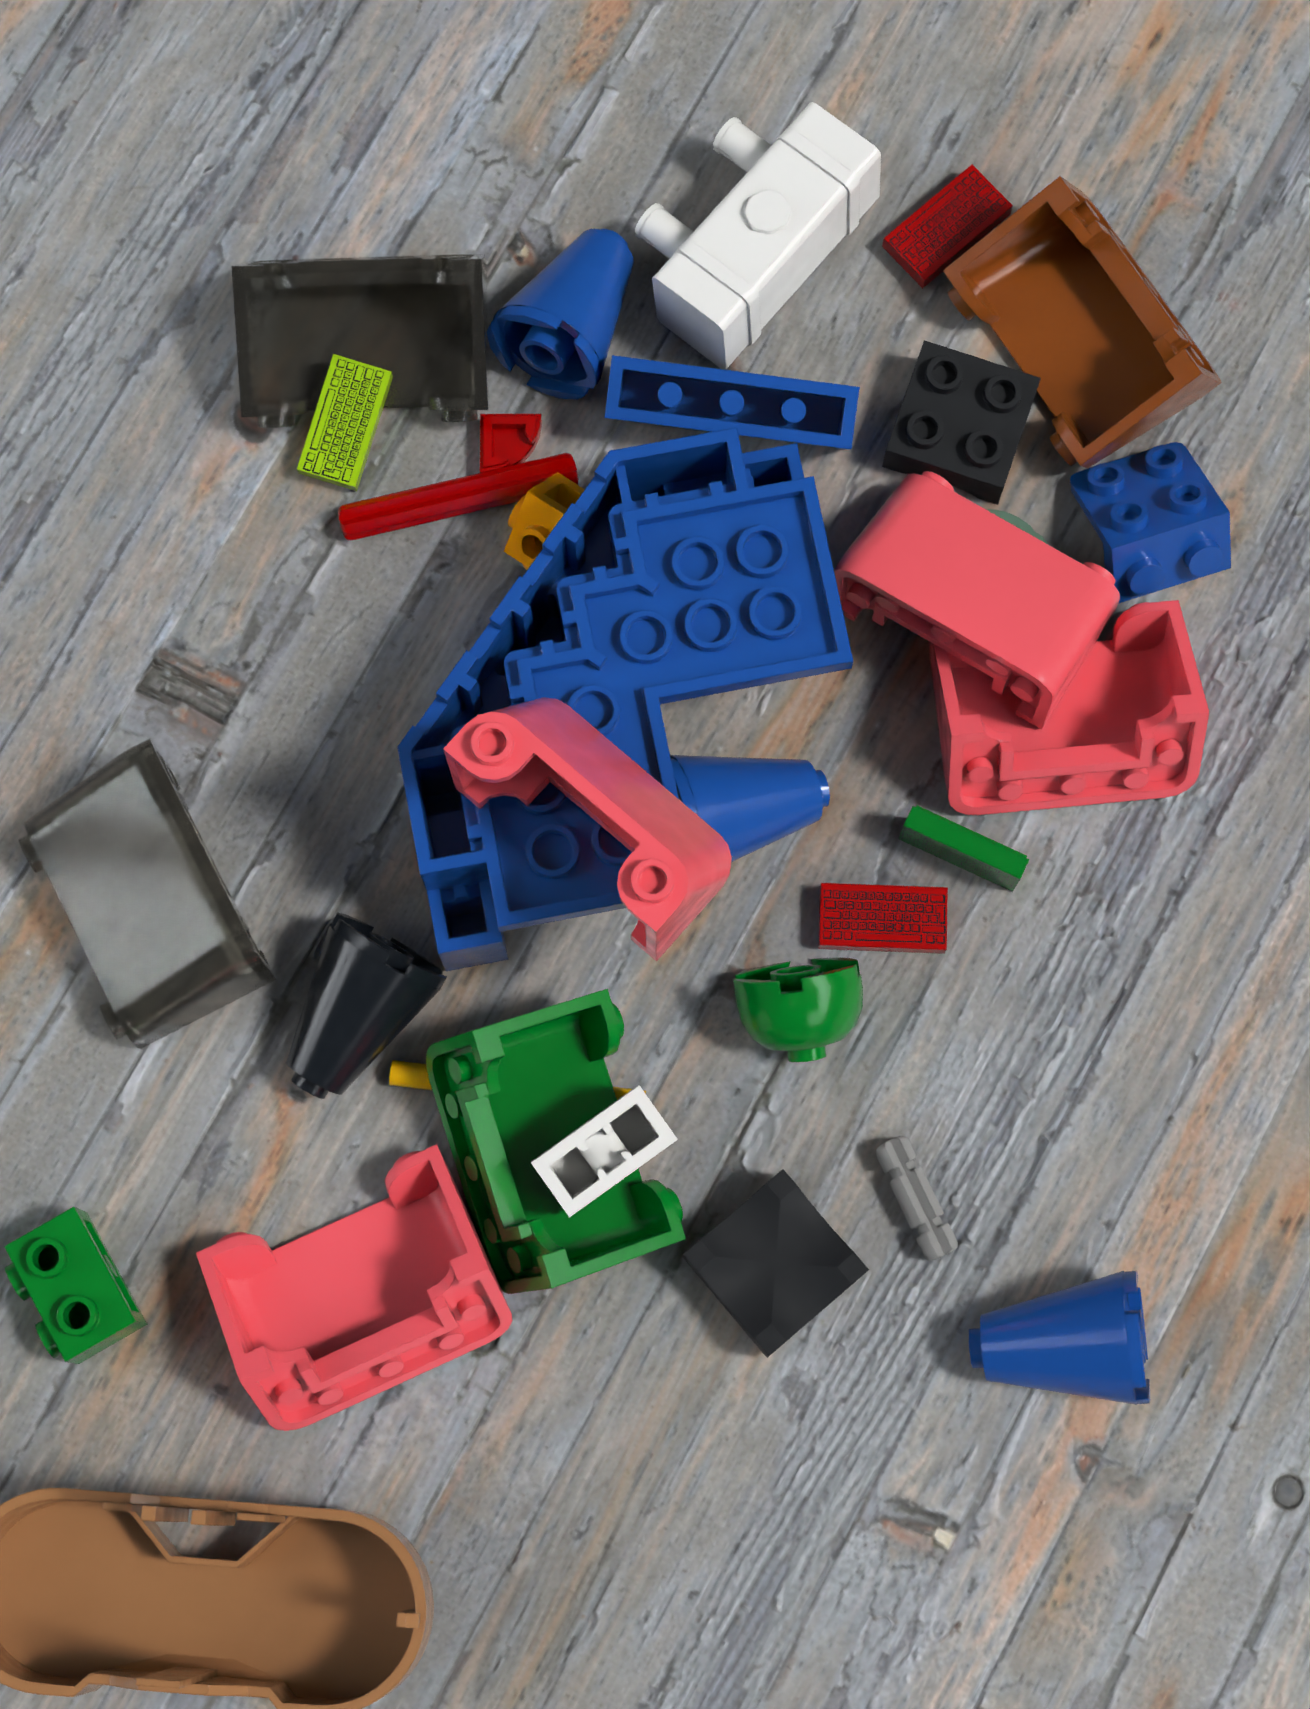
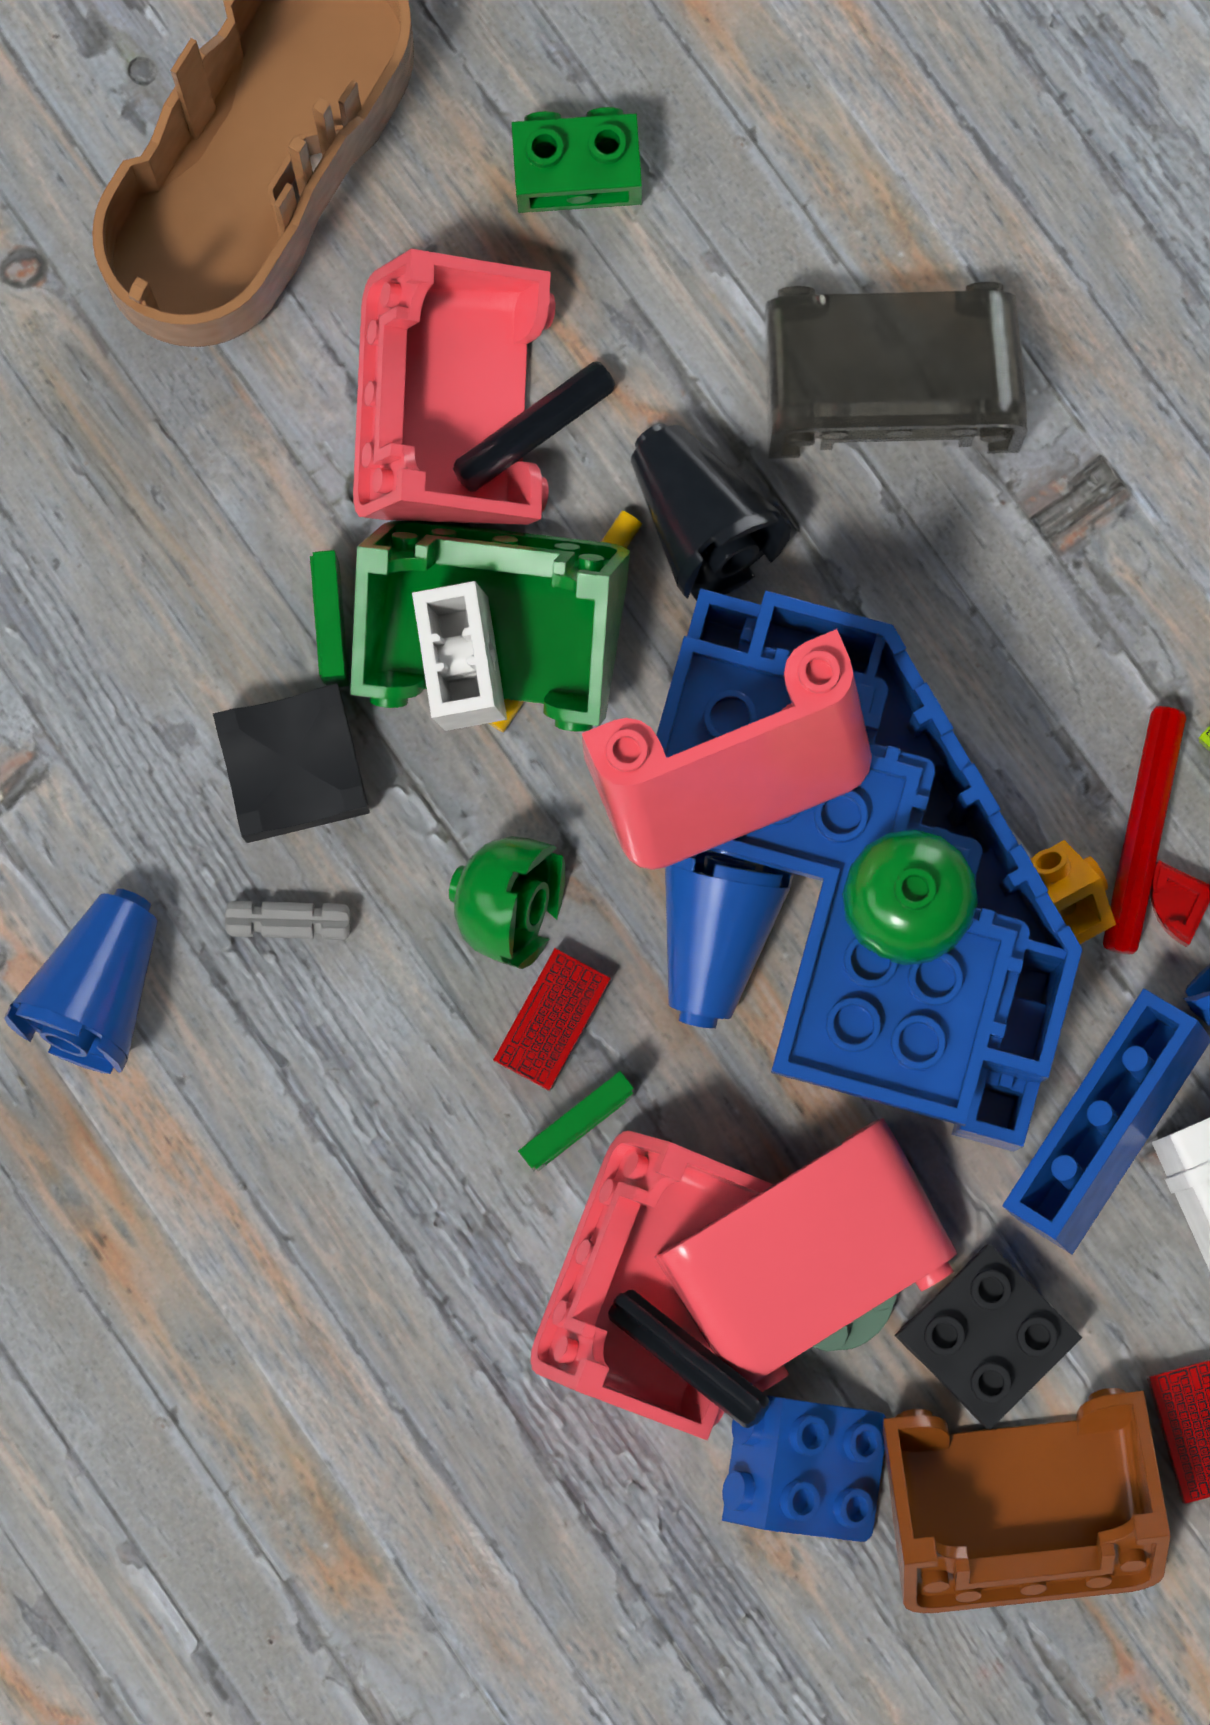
camera: 120 degrees right, 5 degrees up
(349, 1201) = (533, 426): none -> black axle
(623, 1298) = (329, 618): none -> green tile
(639, 610) = (910, 897): none -> green cylinder
(1119, 647) = (689, 1358): none -> black axle

